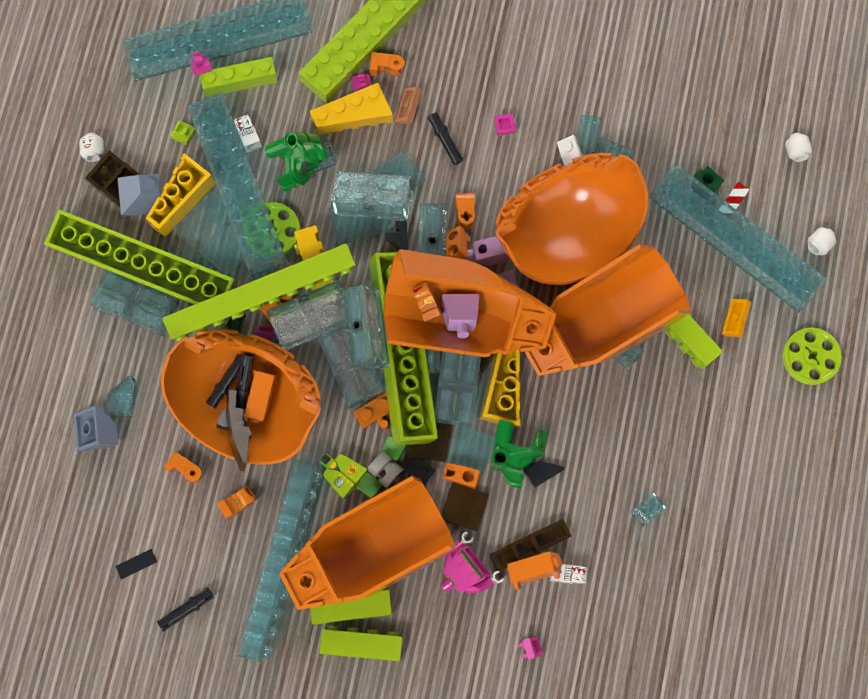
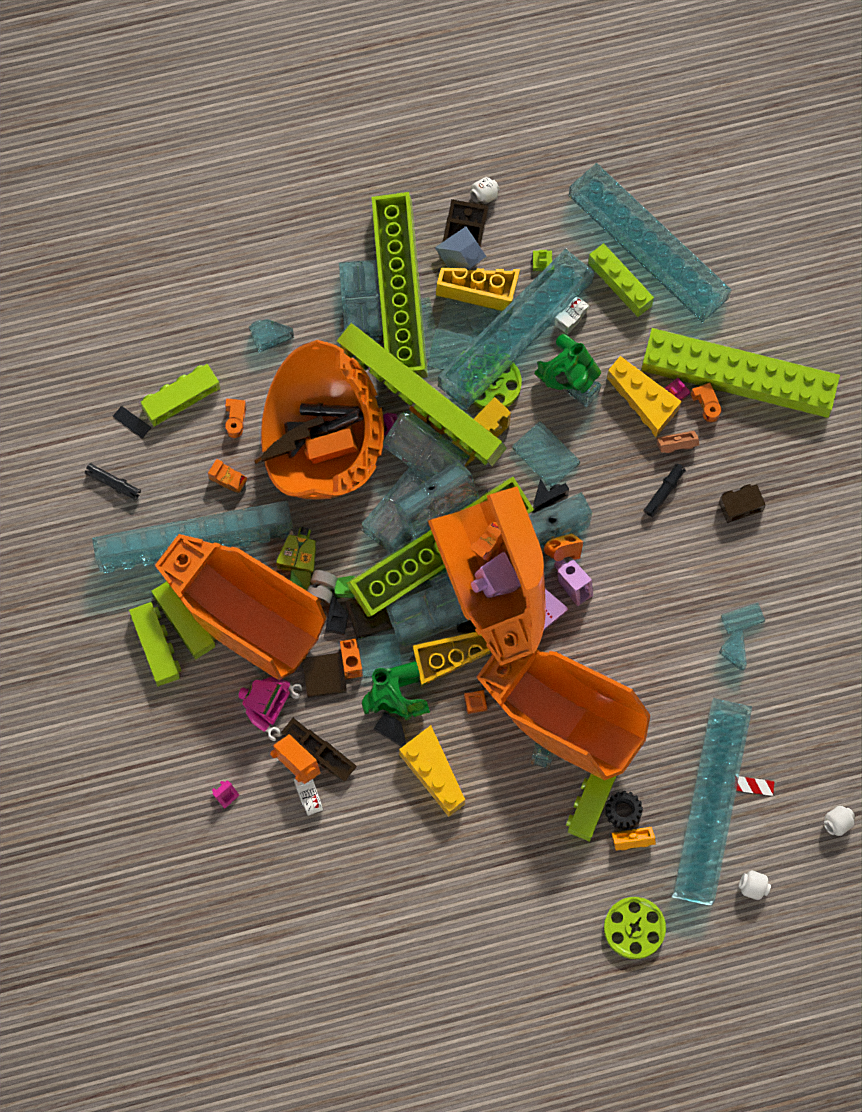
camera: 65 degrees right, 5 degrees down
(94, 430) = (230, 326): sand blue slope -> none
(135, 506) = (180, 394): none -> lime brick
(200, 64) = (611, 240): dark pink tile -> none
(234, 324) = (387, 394): dark green bush -> none
(371, 195) = (569, 449): clear light blue brick -> none
(373, 412) = (368, 553): orange plate -> none
(401, 165) = (606, 467): clear light blue tile -> none
(465, 208) = (607, 540): orange piece -> none
(489, 82) = (741, 503): none -> dark brown brick
(504, 124) = (706, 535): dark pink tile -> none
(552, 389) = (475, 702): none -> orange tile
(569, 149) = (711, 612): white plate -> none
(574, 218) = (636, 631): orange windscreen -> none
(591, 455) = (431, 767): none -> yellow wedge
(648, 510) = (405, 840): clear light blue slope -> none
(713, 177) = (755, 758): dark green brick -> none
(720, 314) = (629, 799): none -> black tyre

